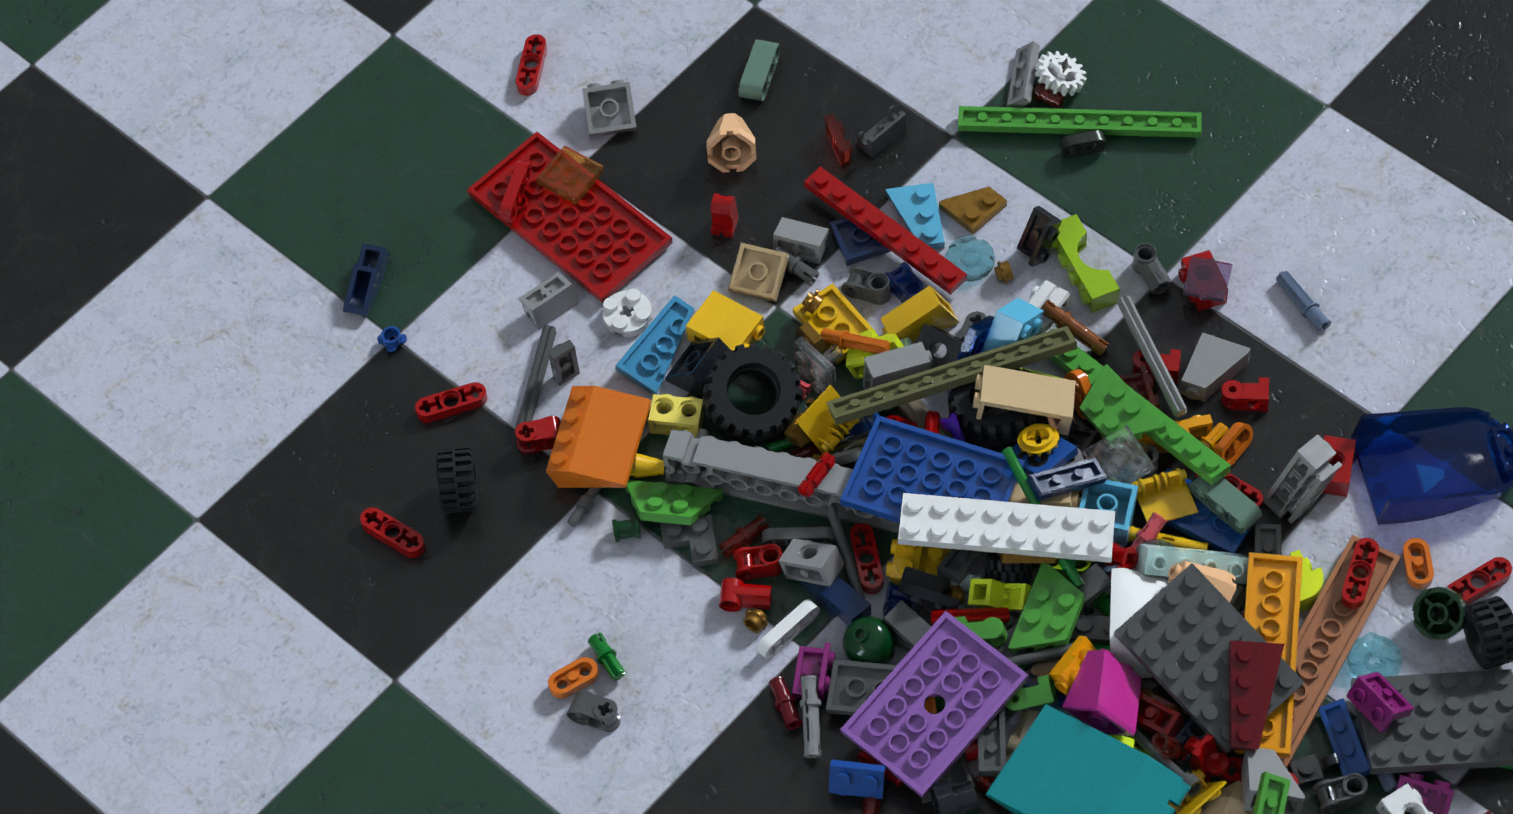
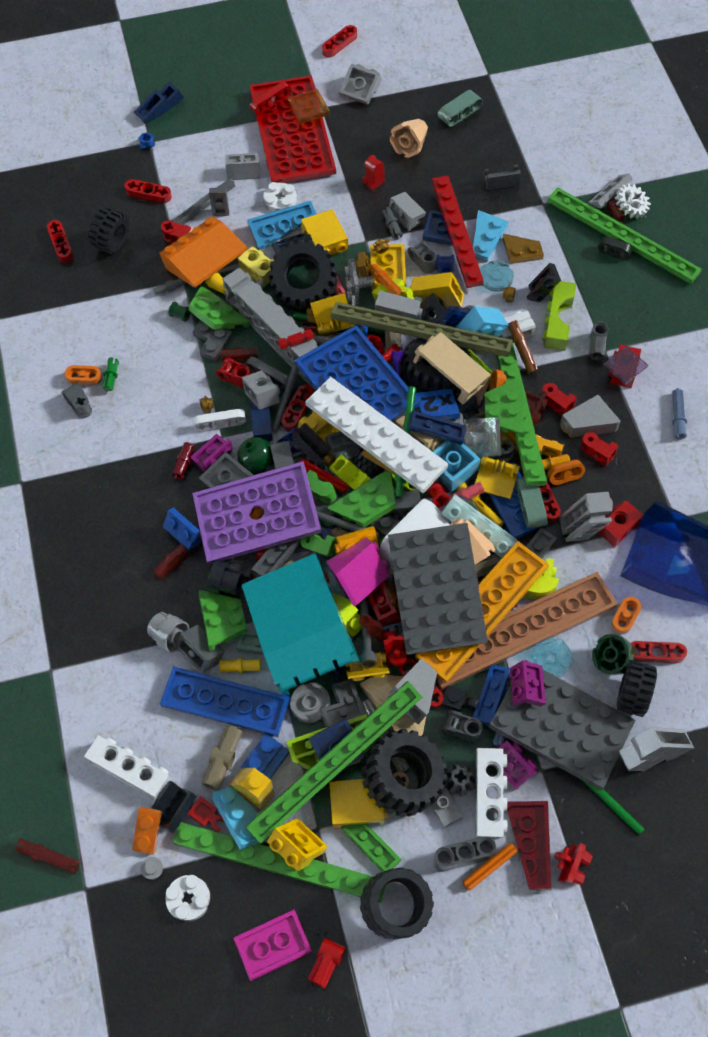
camera: 30 degrees right, 5 degrees up
(737, 595) = (208, 384): red piece -> none
(758, 272) = (368, 215): tan tile -> none
(810, 706) = (188, 477): light grey pin -> none
(835, 134) = (472, 172): clear red plate -> none
(1028, 436) = (438, 390): yellow gear -> none
(1152, 356) = (554, 390): light grey axle -> none
(1251, 685) = (448, 622): dark red wing -> none
(1361, 583) = (584, 589): red beam -> none

